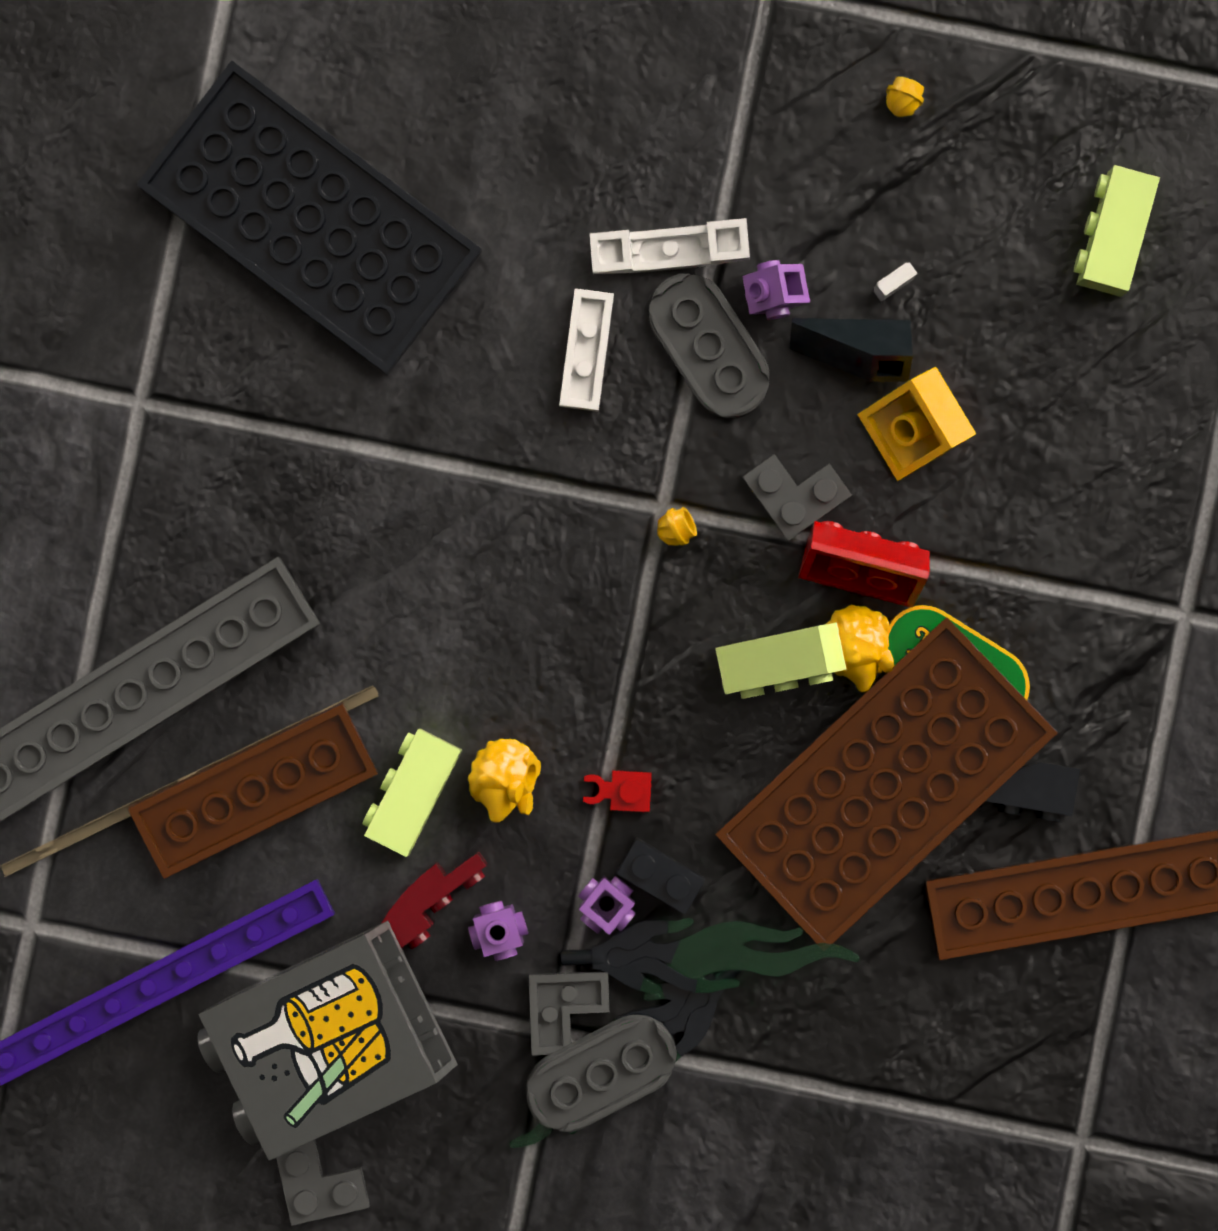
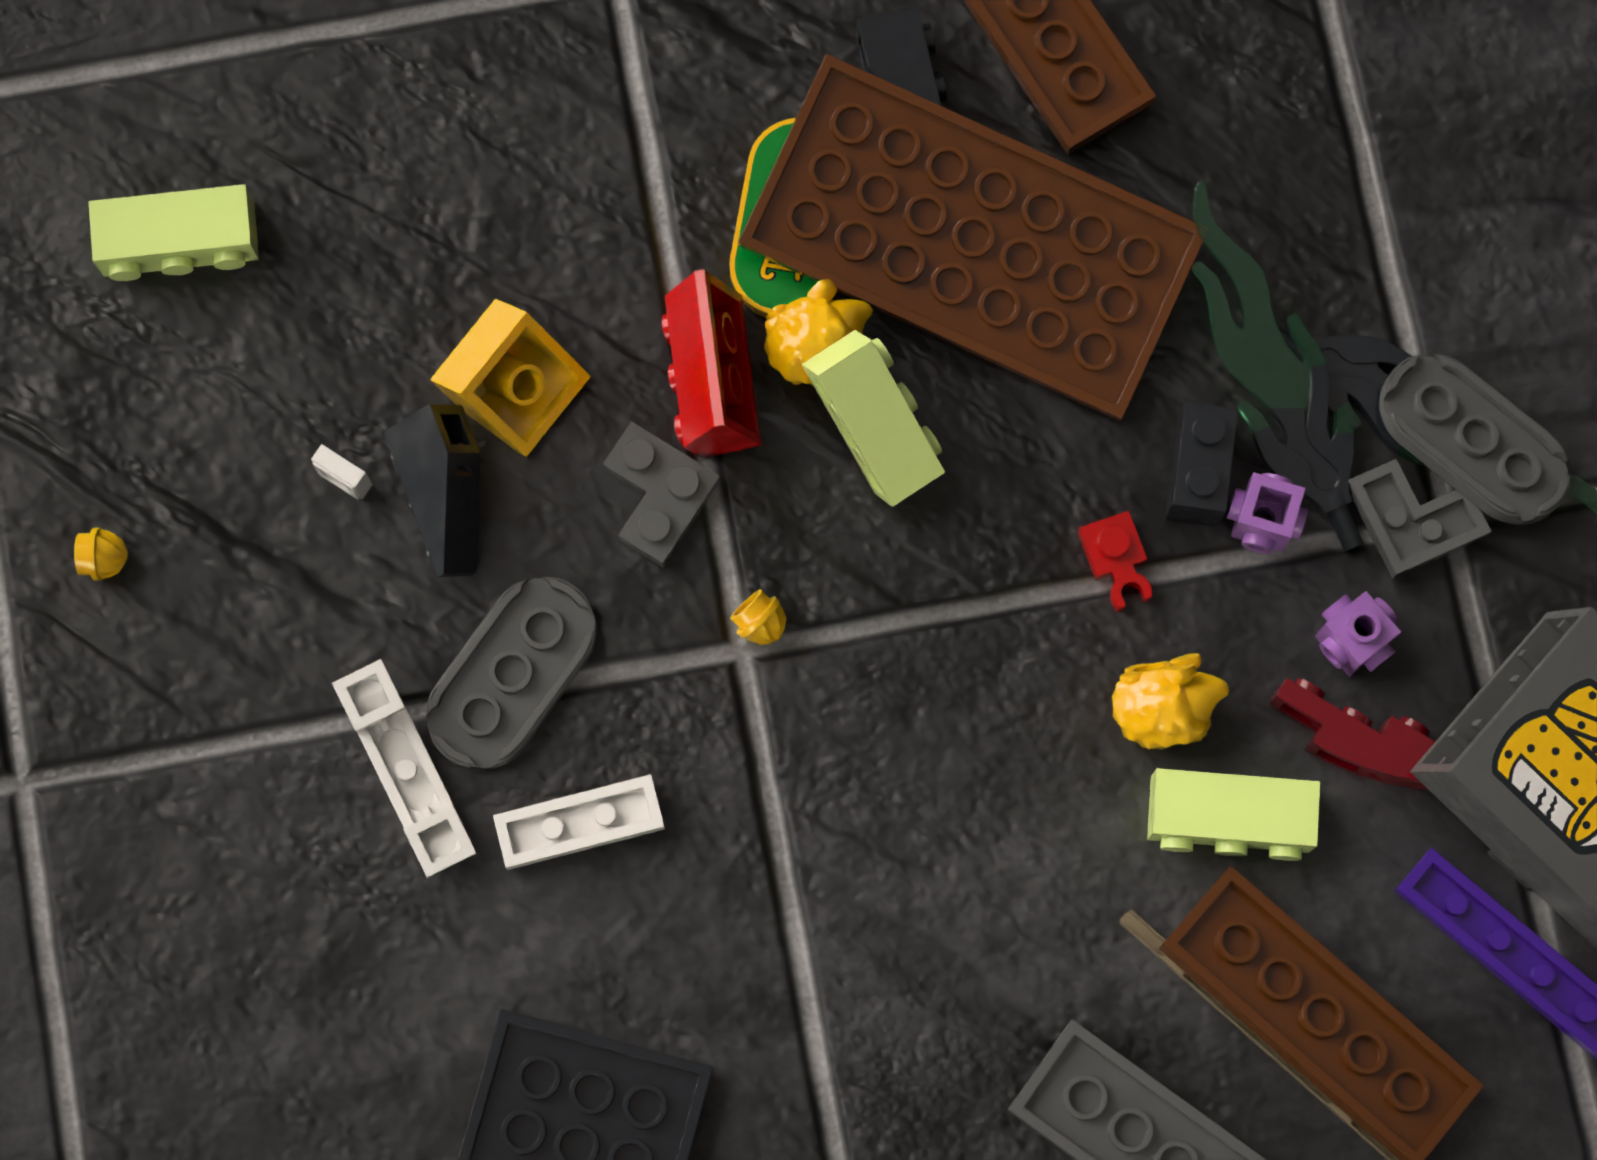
camera: 110 degrees left, 10 degrees down
(776, 289) = (408, 612): medium lavender brick -> none

